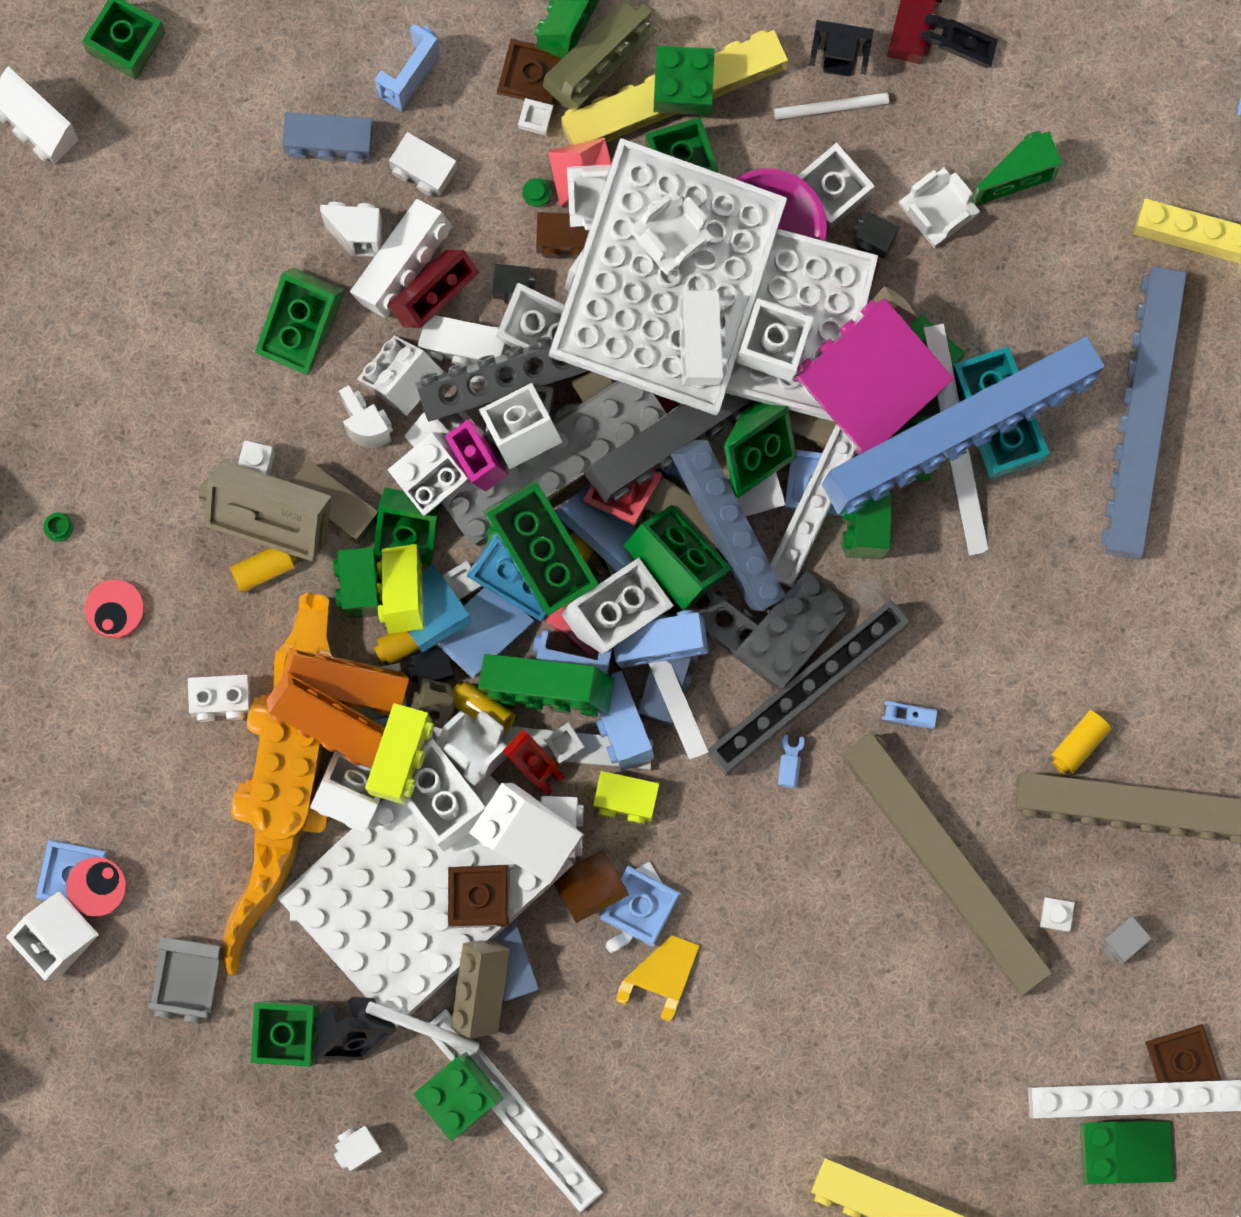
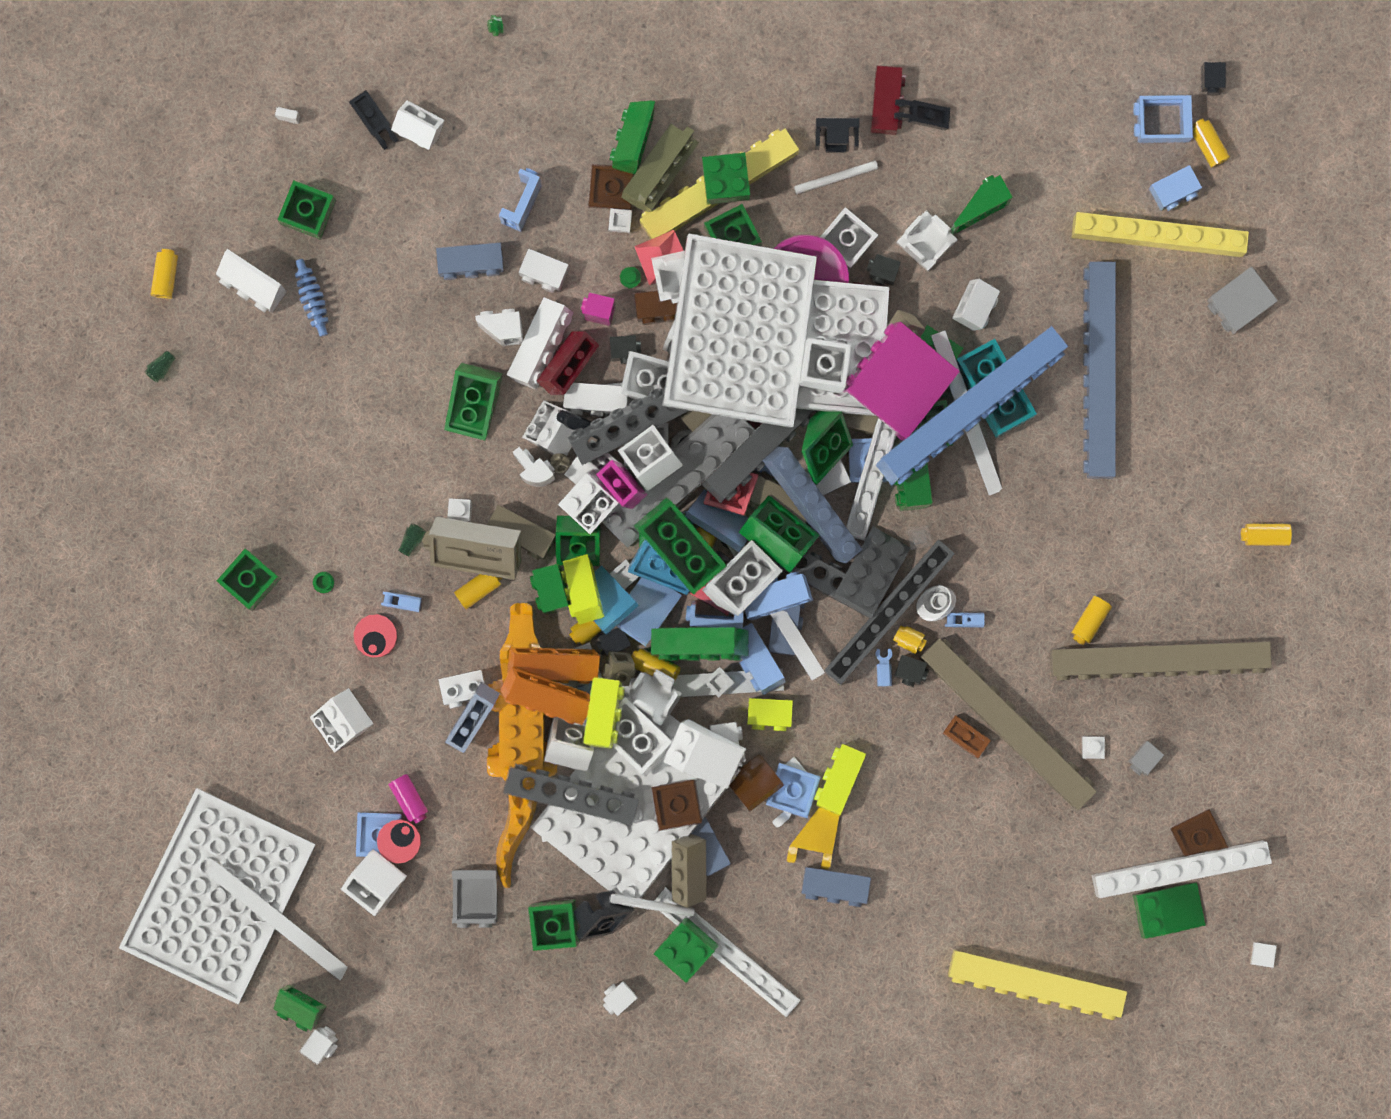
camera: 10 degrees left, 5 degrees up
(48, 712) = (341, 720): none -> white slope
(110, 152) = (311, 297): none -> medium blue piece
(120, 832) = (408, 799): none -> dark pink brick
(161, 570) = (405, 602): none -> light blue bar
(185, 488) = (412, 538): none -> clear green cone
(223, 735) = (472, 717): none -> sand blue brick
(263, 835) = (624, 814): none -> dark grey brick
(400, 418) = (560, 462): none -> dark tan plate
(427, 364) = (573, 421): none -> black hinge
(486, 224) = (598, 308): none -> dark pink brick
(532, 761) = (698, 699): red hinge -> none
(672, 231) = (737, 298): white panel -> none
(676, 1044) = (835, 886): none -> sand blue brick
(701, 338) = (772, 373): white brick -> none
(705, 900) = (839, 779): none -> neon yellow brick
(826, 771) = (911, 671): none -> pearl dark grey brick
(831, 728) = (910, 639): none -> yellow brick
(887, 686) = (931, 610): none -> white hat
(887, 872) = (966, 737): none -> dark orange plate
(992, 300) = (976, 305): none -> white brick

